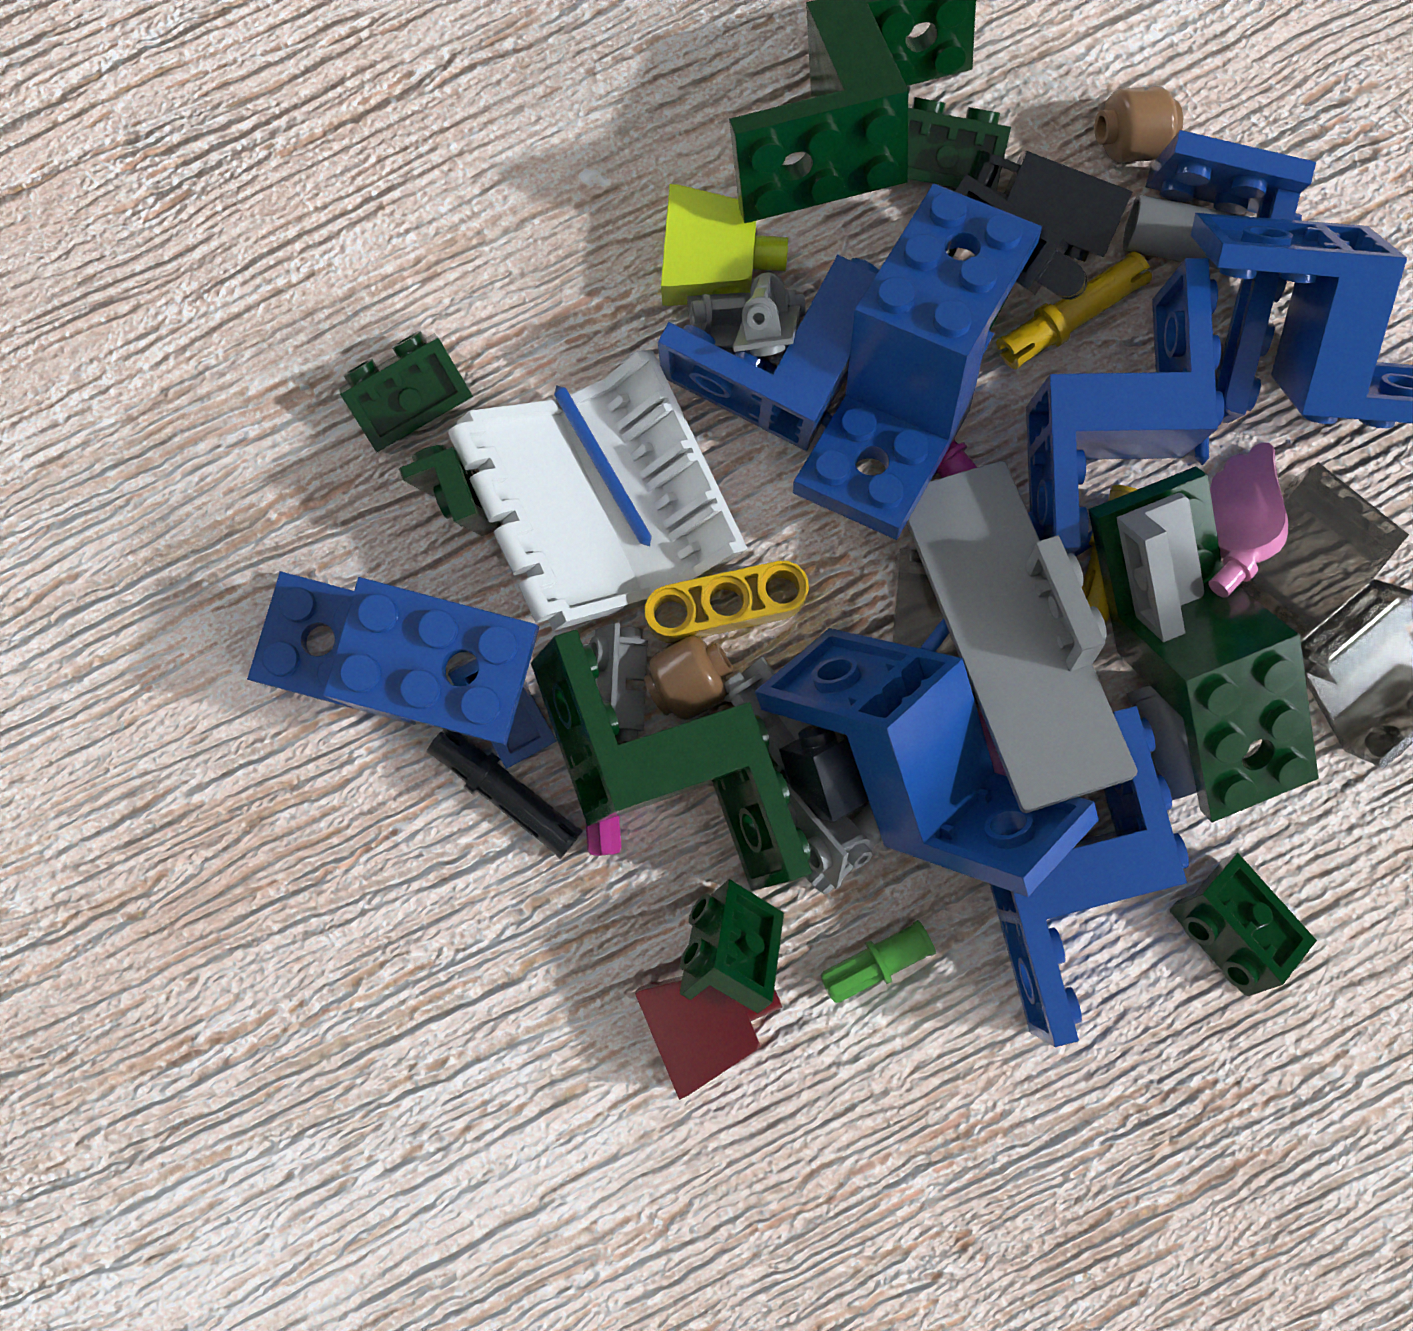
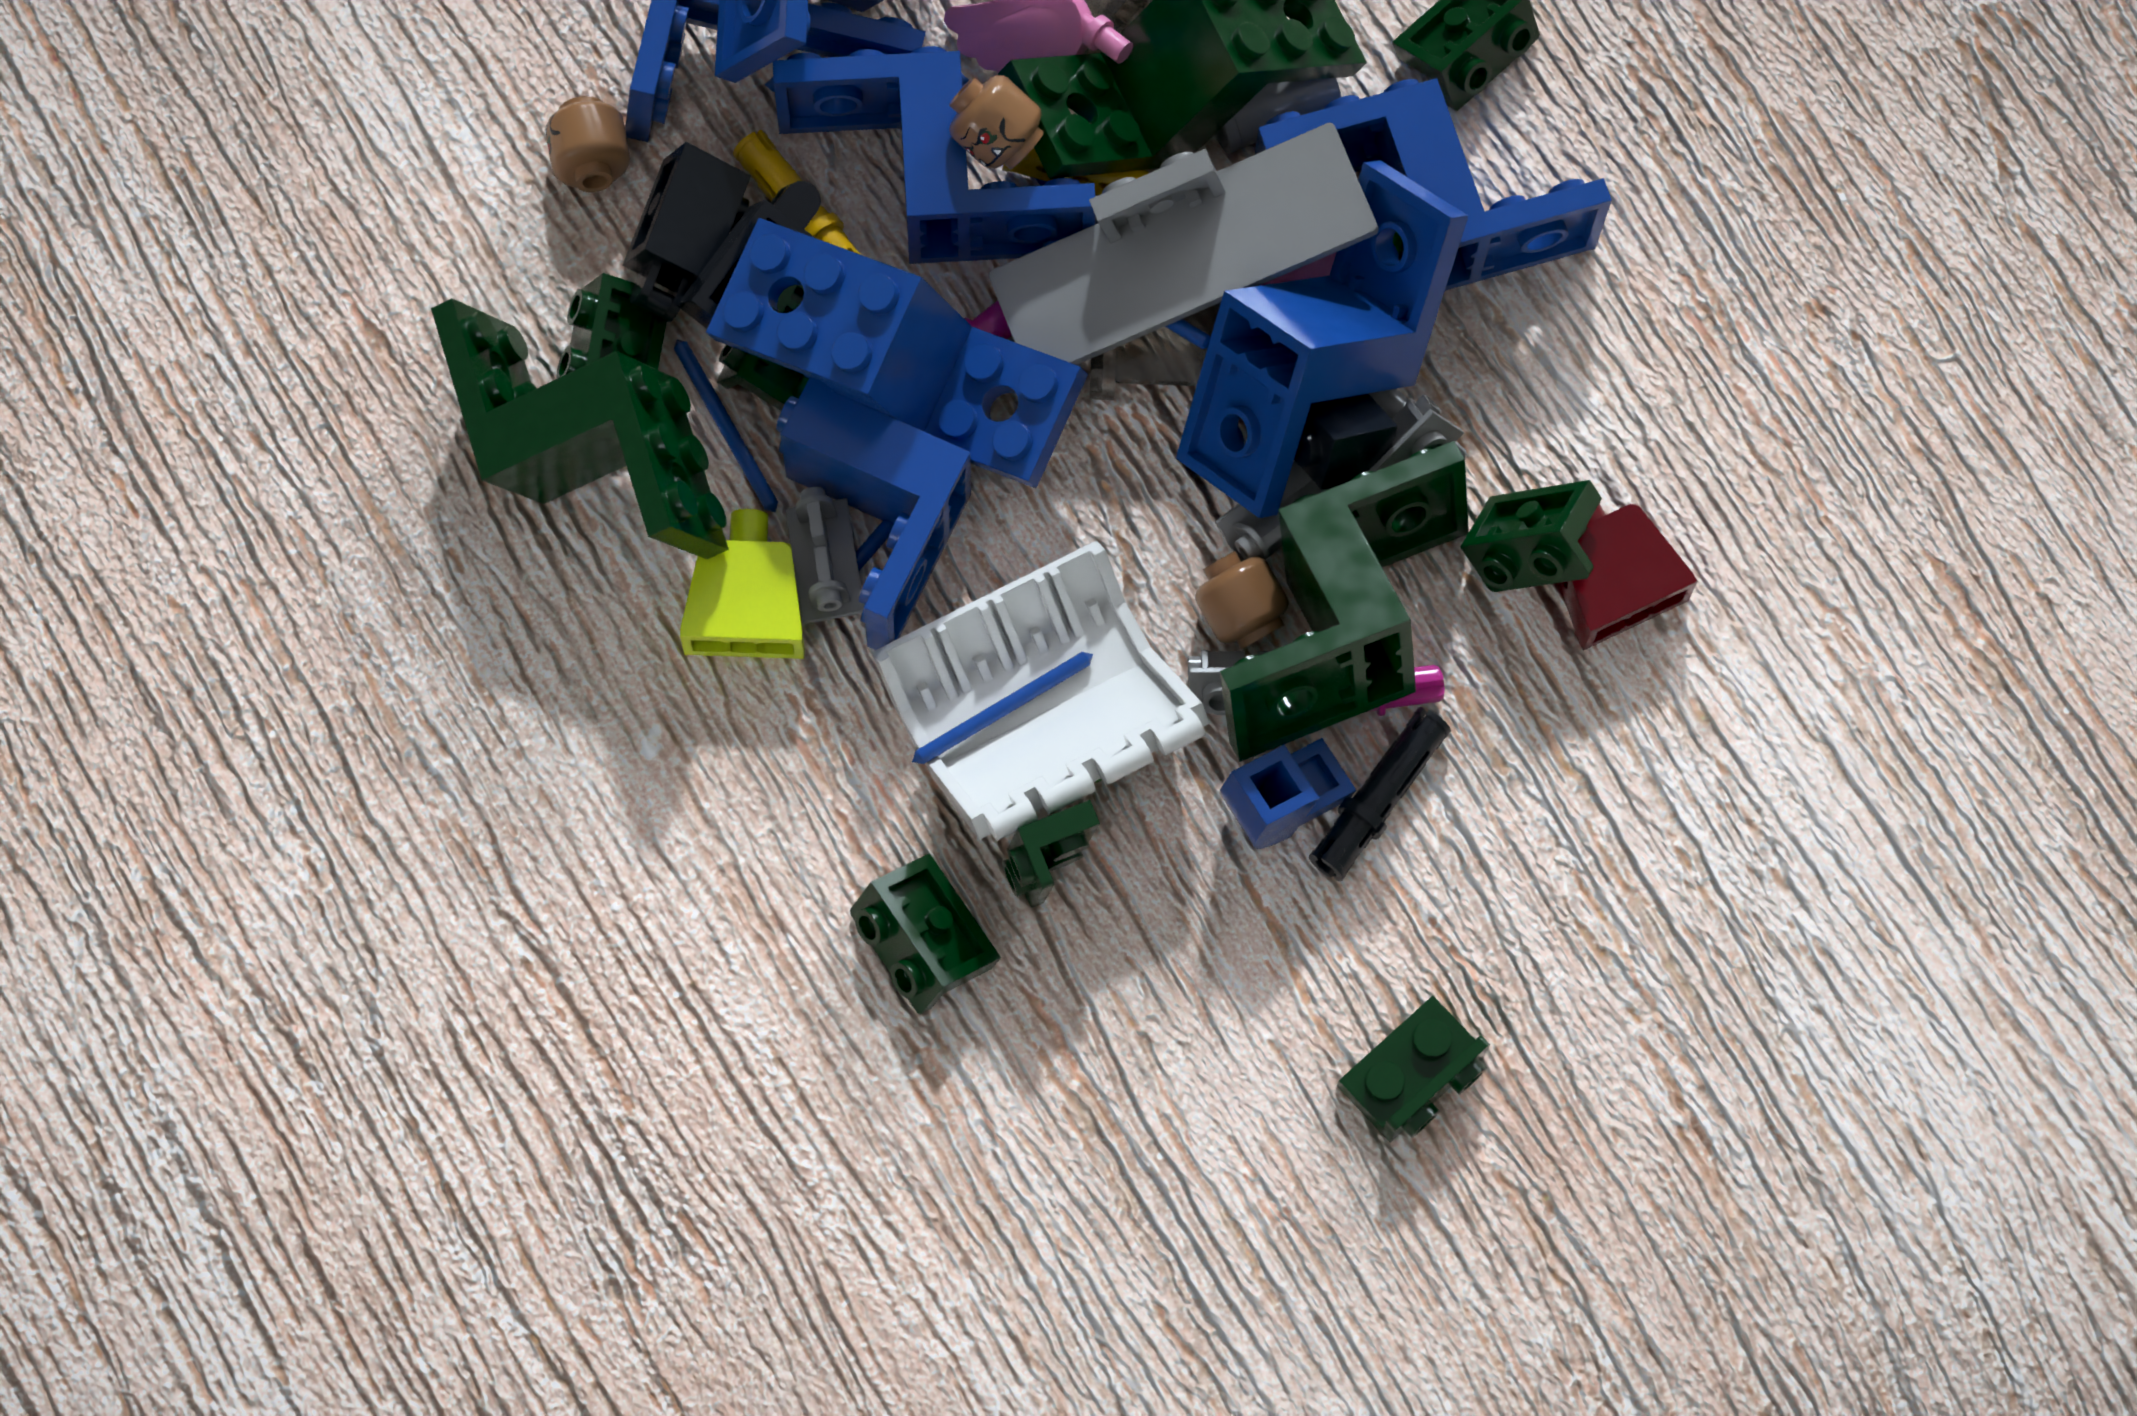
camera: 95 degrees left, 10 degrees down
(251, 806) = (1413, 1070): none -> dark green bracket
(395, 654) = (1245, 898): blue bracket -> none
(746, 582) = (1158, 536): yellow beam -> none
(766, 318) = (853, 510): light grey hinge -> none
(859, 251) = (726, 425): none -> blue axle
(877, 962) = (1535, 397): bright green axle -> none
(1141, 453) = (995, 122): none -> medium nougat head
(1161, 563) = (1108, 106): light grey panel -> none
(1164, 229) = (707, 104): light grey pin -> none

